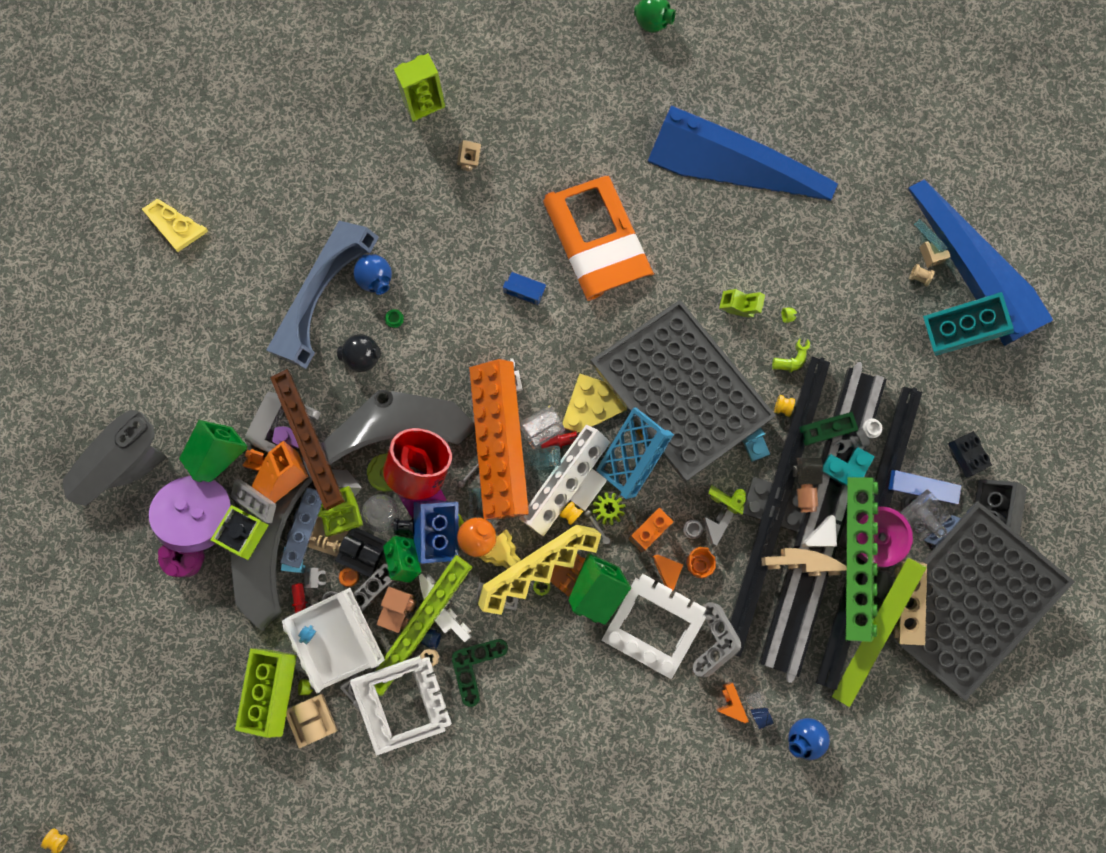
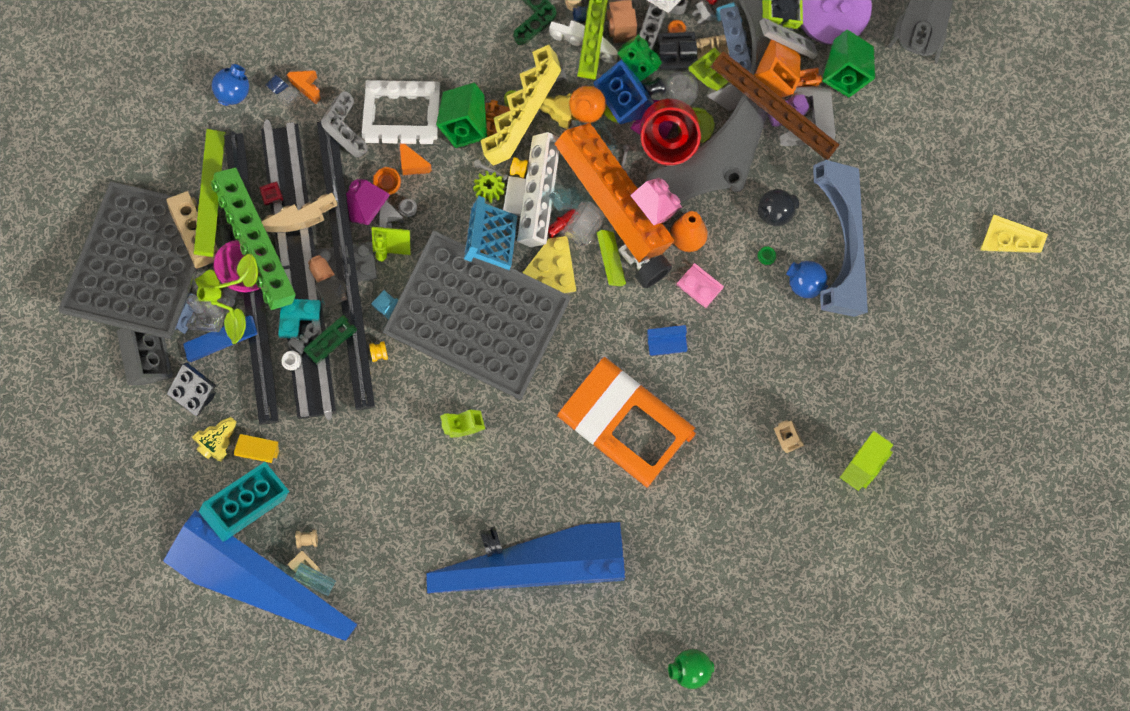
camera: 150 degrees right, 5 degrees down
(450, 374) = (689, 232): none -> orange cone
(467, 403) = (656, 200): none -> bright pink slope
(468, 322) = (700, 285): none -> bright pink plate
(503, 349) = (653, 271): none -> black tyre
(533, 384) = (611, 258): none -> lime tile
(651, 529) = (443, 184): orange window -> none
(732, 549) = (364, 201): none -> magenta slope
(768, 191) = (491, 541): none -> black wheel
(788, 314) = (413, 438): lime hinge -> none
(792, 364) = (388, 394): lime piece -> none
(820, 600) = (271, 193): none -> dark red tile
(823, 535) = (294, 243): white slope -> none
(923, 519) = (209, 291): none -> lime plant
(935, 369) = (256, 448): none -> yellow panel
(966, 400) = (215, 440): none -> light yellow rock

